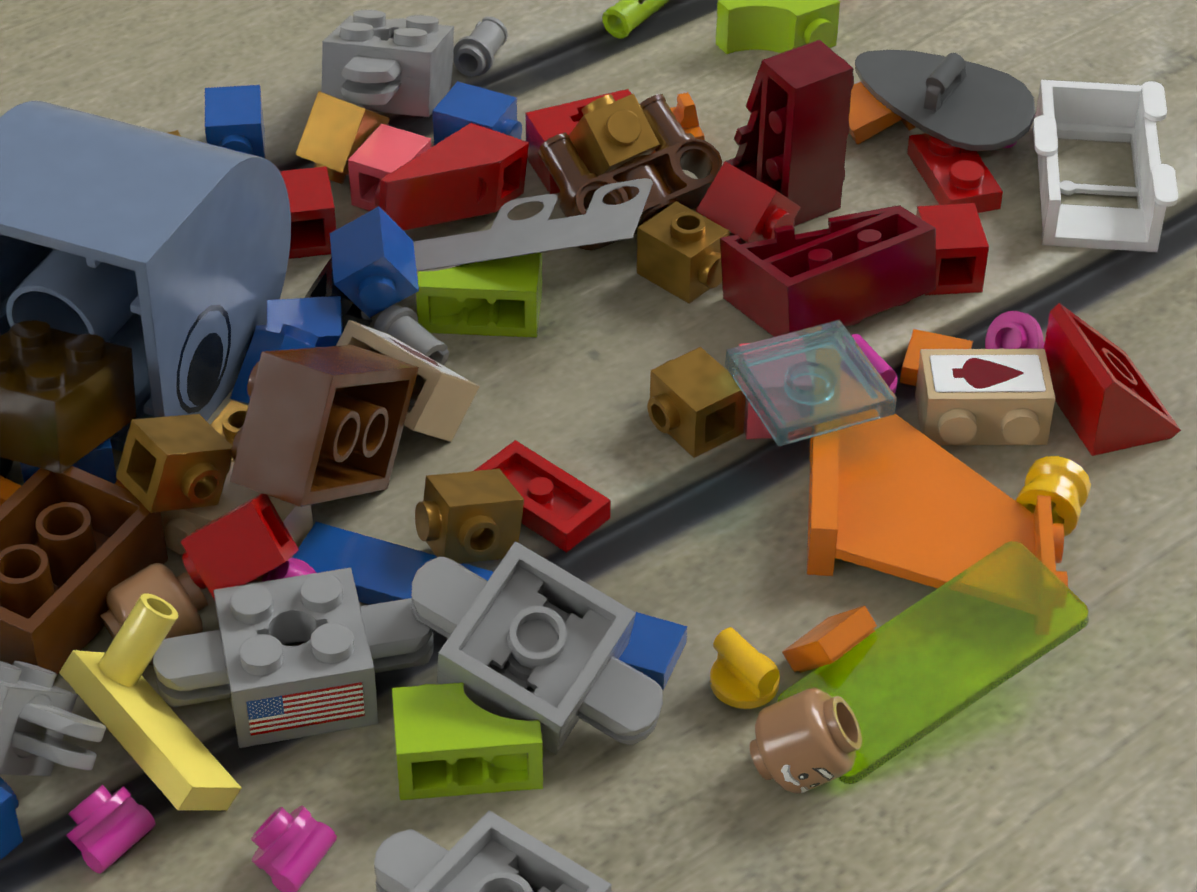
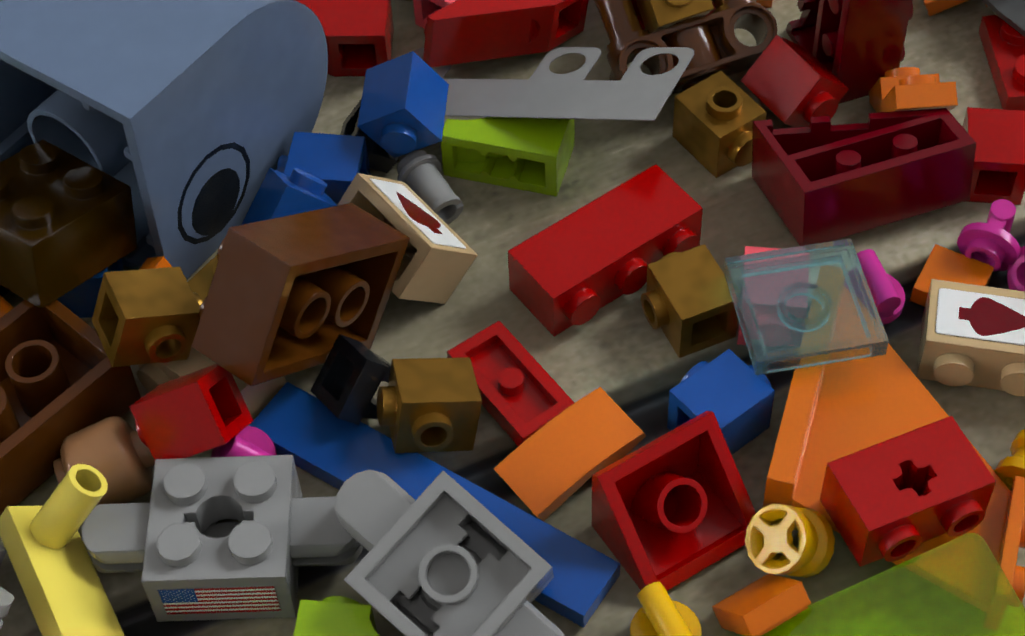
camera: 15 degrees right, 10 degrees up
(384, 505) = (351, 380): none -> black tile
(597, 370) = (603, 249): none -> red brick
(616, 537) = (568, 452): none -> orange slope
(725, 566) = (672, 504): none -> red slope
(748, 486) = (731, 391): none -> blue brick
(827, 576) = (771, 540): none -> yellow wheel
(862, 196) = (908, 90): none -> orange slope
(942, 519) = (907, 492): none -> red brick
(965, 316) = (992, 240): none -> dark pink plate

